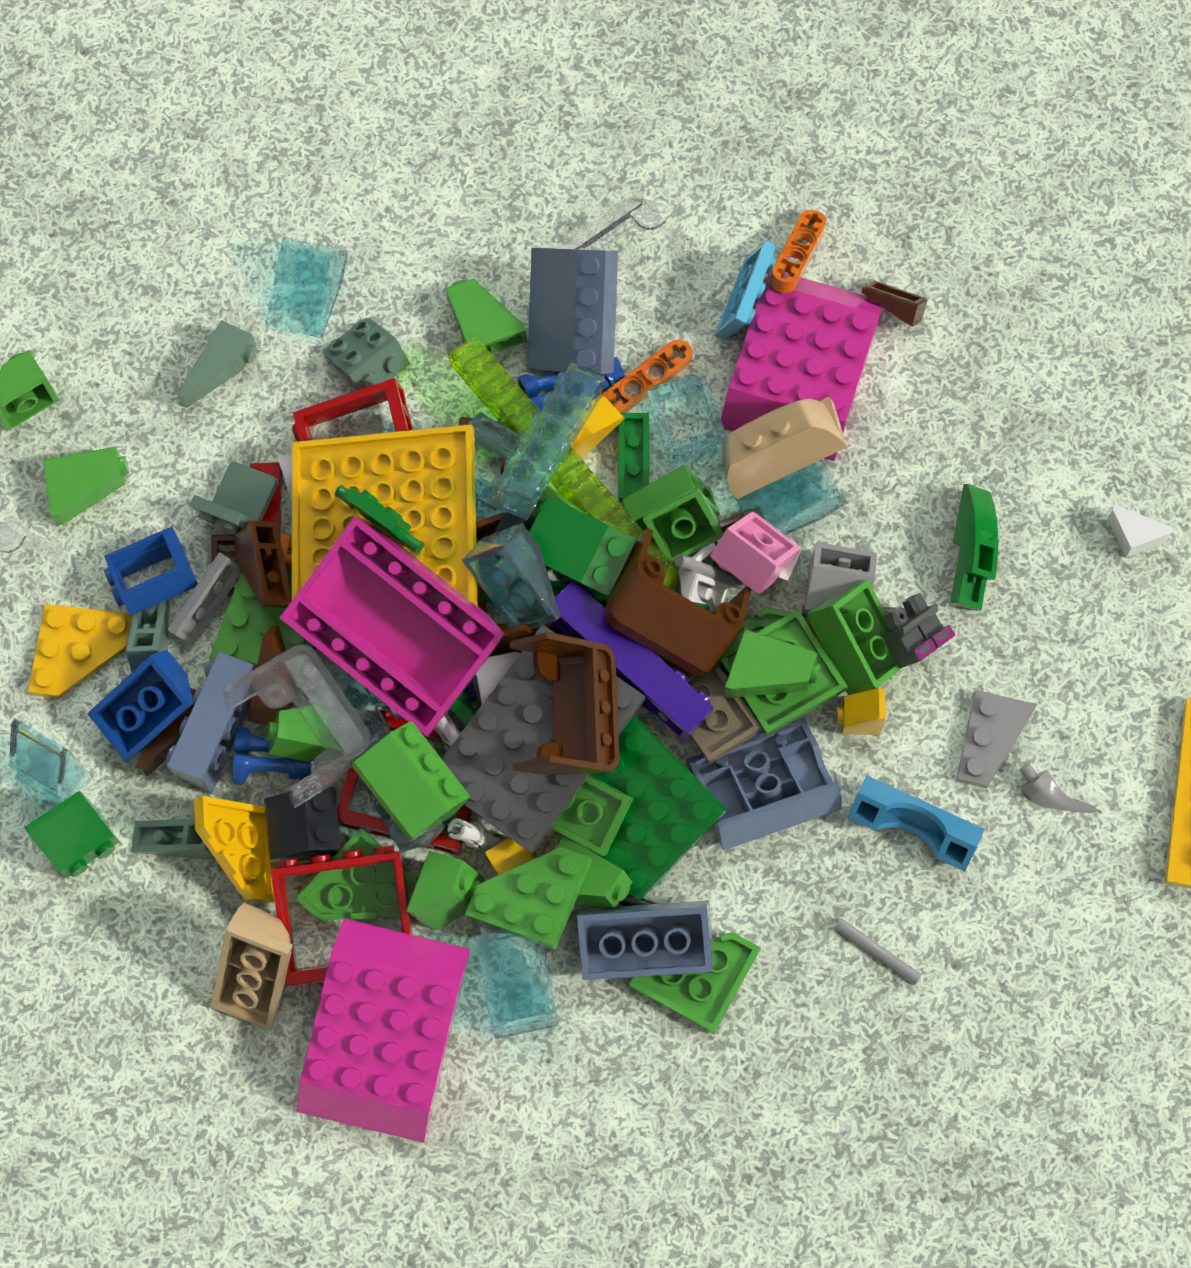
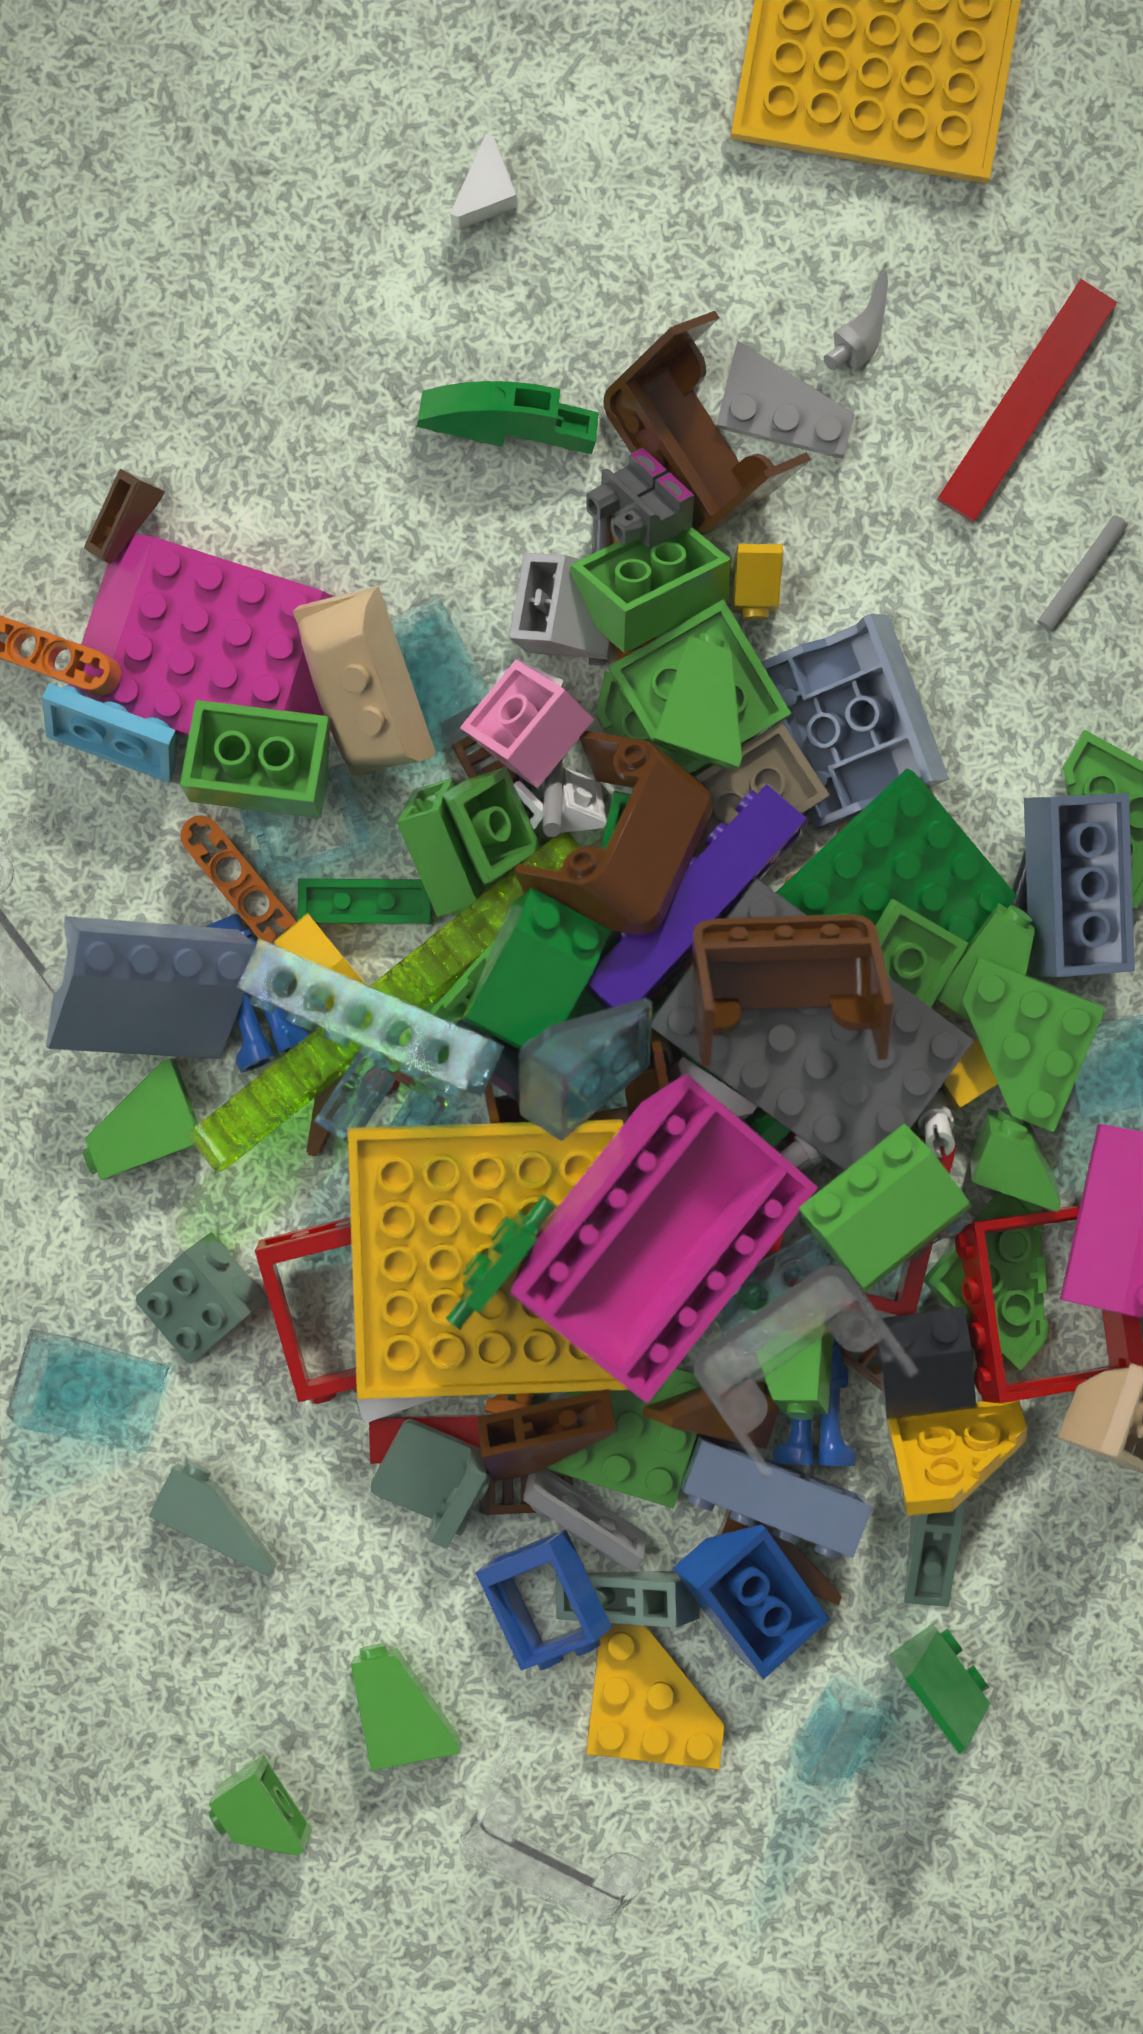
camera: 95 degrees left, 15 degrees up
(727, 375) = (257, 759): none -> bright green slope
(887, 807) = (931, 466): dark azure arch -> none
(966, 663) = (660, 412): none -> reddish brown windscreen
(1007, 913) = (1026, 400): none -> red tile

